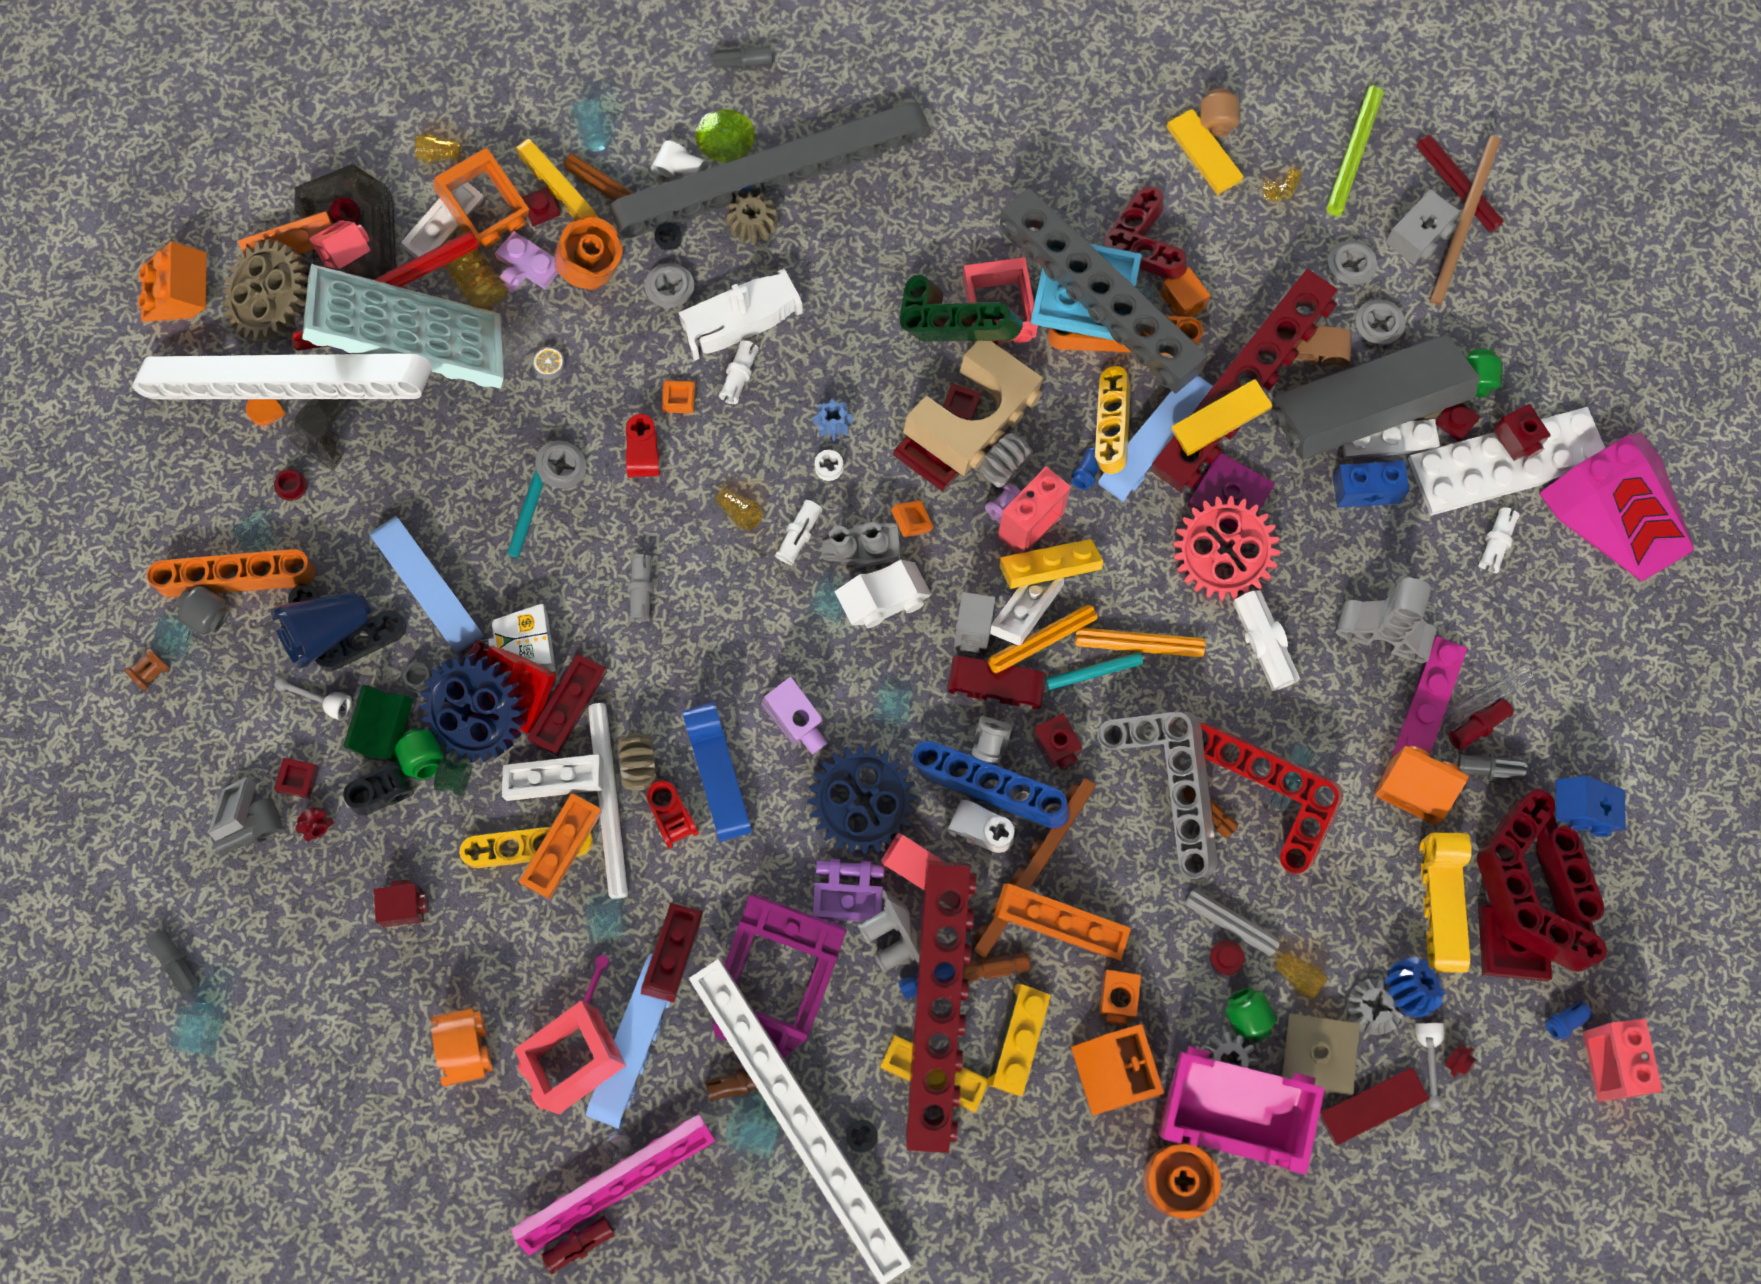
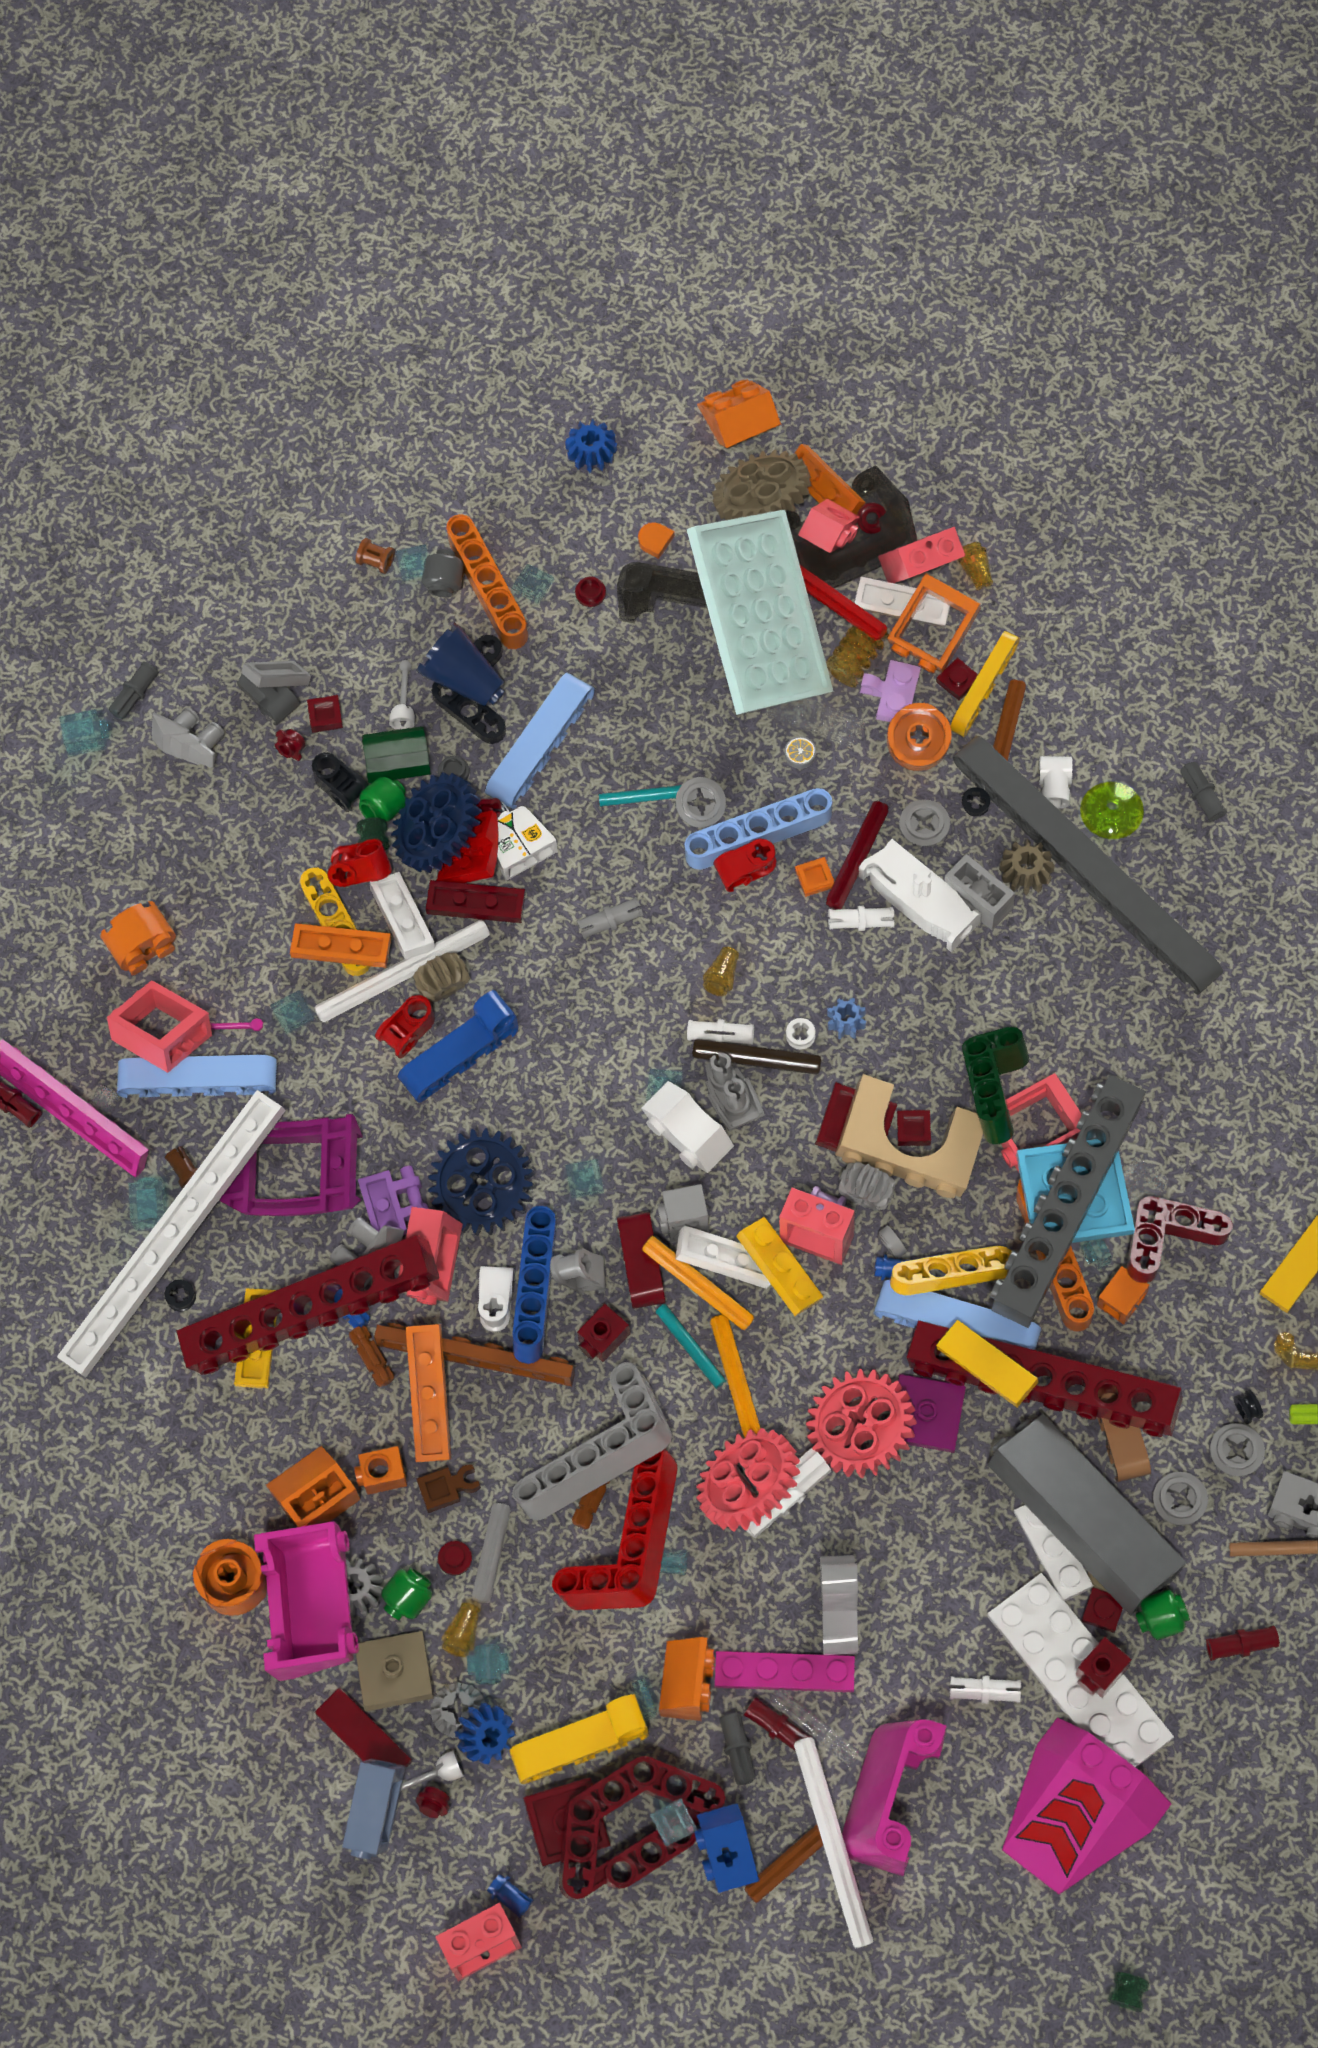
camera: 75 degrees right, 5 degrees down
(130, 438) = (601, 451): none -> blue gear
(254, 935) = (175, 737): none -> light grey connector
(284, 377) = (668, 536): white beam -> none
(400, 904) = (245, 841): dark red brick -> none
(413, 177) = (921, 555): none -> coral window
(478, 795) = (362, 861): none -> red piece
(591, 125) = (1061, 686): clear light blue brick -> none
(608, 411) = (766, 817): none -> light blue beam
(671, 953) = (281, 1073): dark red tile -> none
(676, 352) = (856, 855): none -> dark red axle
(762, 258) = (981, 891): none -> light grey brick
(783, 703) = (549, 1084): lavender torso -> none
(836, 510) = (758, 1056): none -> dark brown axle
(912, 518) = (776, 1126): orange tile -> none
(1018, 1040) = (311, 1398): yellow plate -> none
(1063, 461) = (892, 1242): none -> light grey tile
(1154, 945) = (442, 1489): none -> reddish brown plate
(1259, 689) = (727, 1493): none -> coral gear
(1318, 238) = (1248, 1406): none -> black bush
(1345, 962) = (487, 1664): none -> clear light blue gear
(1370, 484) = (988, 1539): blue brick -> none
(1419, 830) = (644, 1699): none -> clear light blue tile
(1464, 1115) = (373, 1808): none -> sand blue window
(1522, 323) = (1242, 1643): none -> dark red pin
(1564, 840) = (673, 1822): none -> clear light blue tile
(1577, 651) = (867, 1830): none -> dark pink windscreen
(1603, 755) = (785, 1864): none -> dark orange axle
(1605, 713) = (833, 1842): none -> white axle

